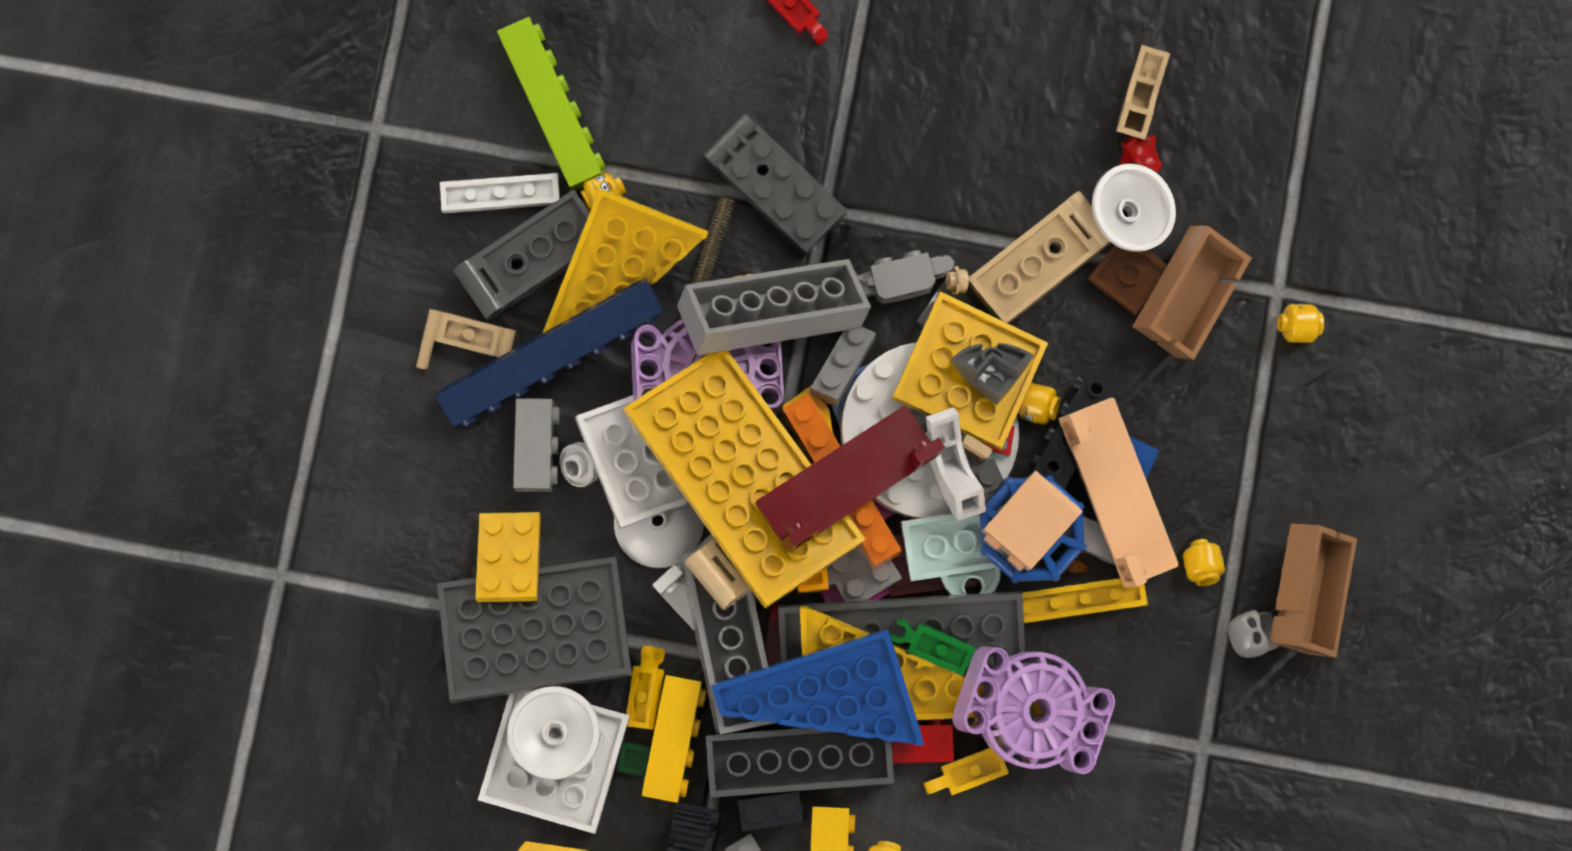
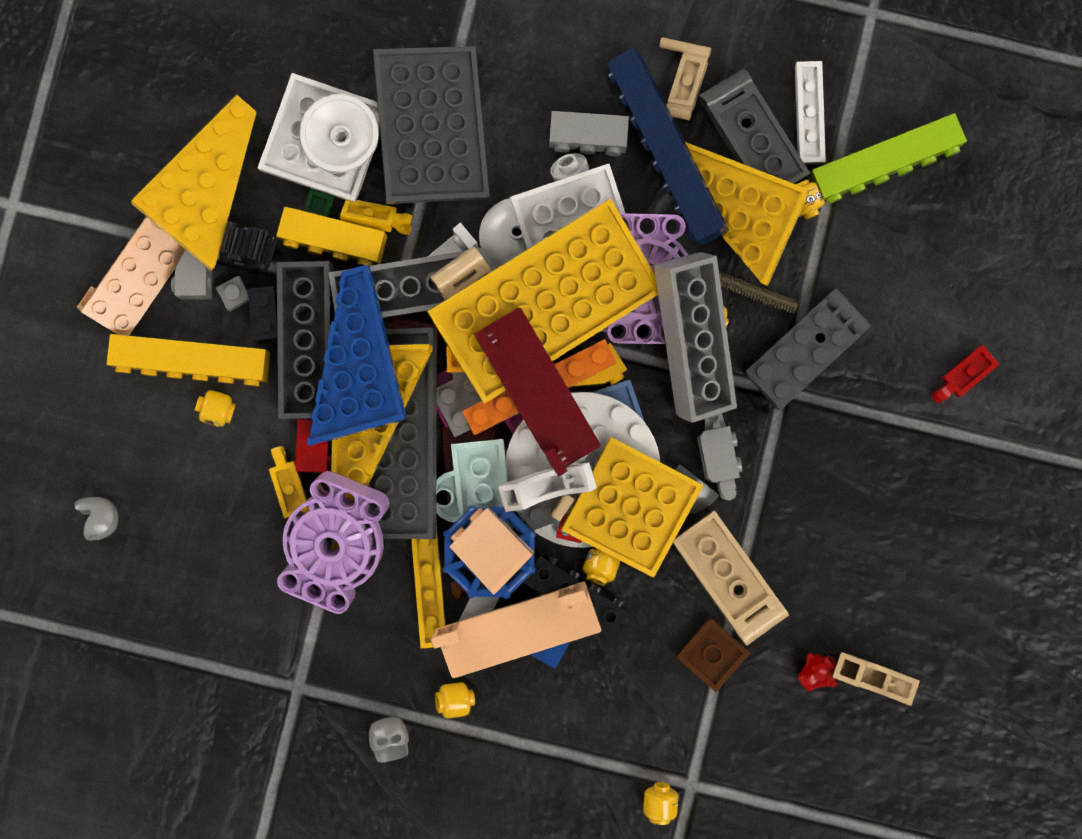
camera: 90 degrees right, 5 degrees up
(508, 557) = (493, 106): yellow plate -> none
(842, 364) = (643, 397): light grey plate -> none
(935, 646) = (391, 460): green plate -> none
(957, 280) = (713, 501): tan plate -> none
(992, 369) = (631, 526): dark grey brick -> none
(1143, 197) = (771, 675): white dish -> none
(1188, 293) = (692, 706): medium nougat piece -> none
(1313, 590) = (421, 794): medium nougat piece -> none

